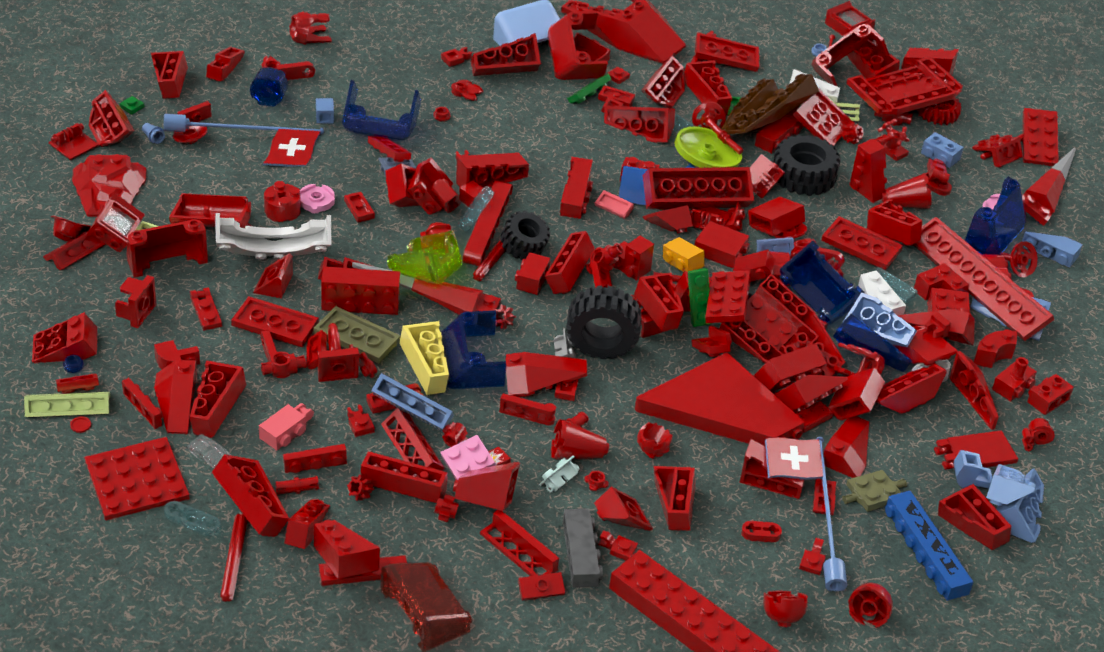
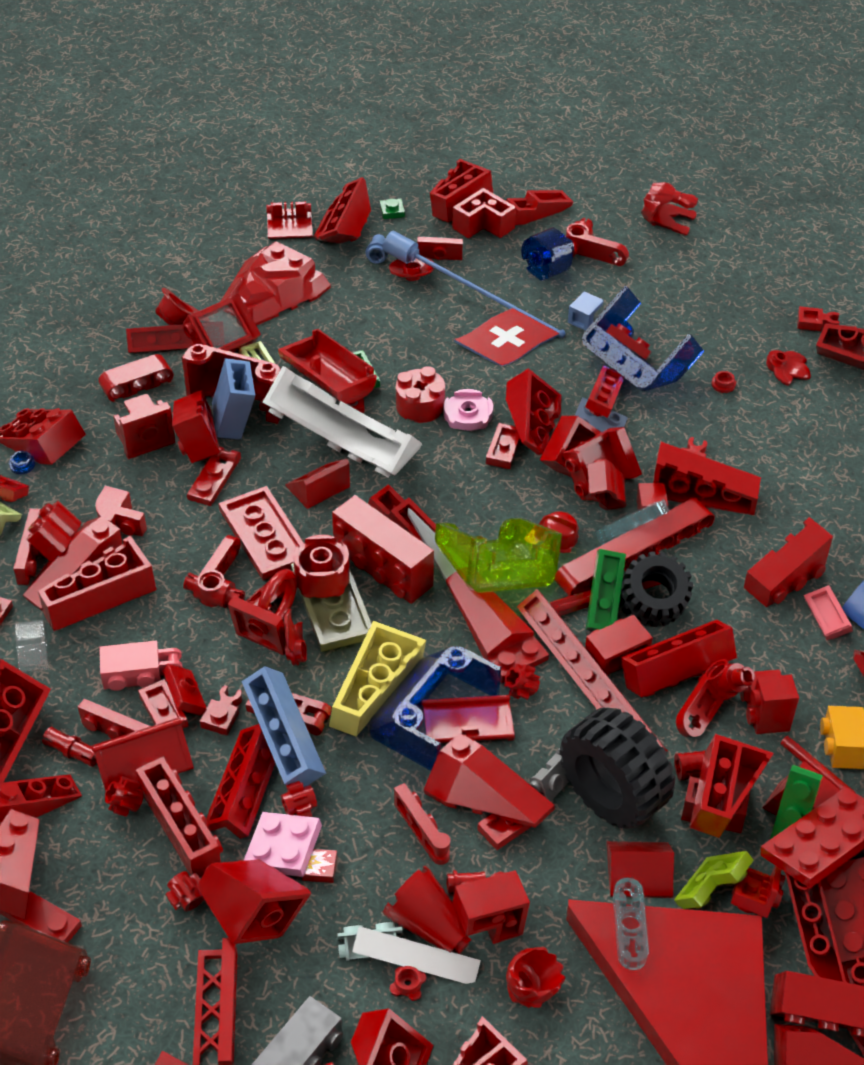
camera: 45 degrees right, 5 degrees up
(88, 279) = (135, 376): none -> red beam
(152, 384) = (53, 530): none -> red brick
(172, 284) = (195, 427): none -> red wedge
(178, 256) = (233, 399): none -> medium blue brick
(202, 79) = (485, 212): none -> red brick
(325, 436) = (160, 703): none -> plate
(329, 420) = (184, 689): none -> red plate
(344, 312) = (321, 567): none -> red brick
(346, 461) = (131, 751): none -> red door
(353, 176) = (533, 409): none -> red wedge
(362, 110) = (638, 346): none -> red plate
(498, 345) = (482, 715): none -> door
(500, 249) = (605, 589): none -> green plate
(519, 292) = (575, 656): none -> plate
(585, 466) = (414, 954): none -> white sticker
(608, 417) = (492, 905): none -> red brick
(649, 368) = (644, 861): none -> red slope
(685, 348) = (711, 873): none -> lime plate
(686, 396) = (624, 935): none -> clear light blue beam

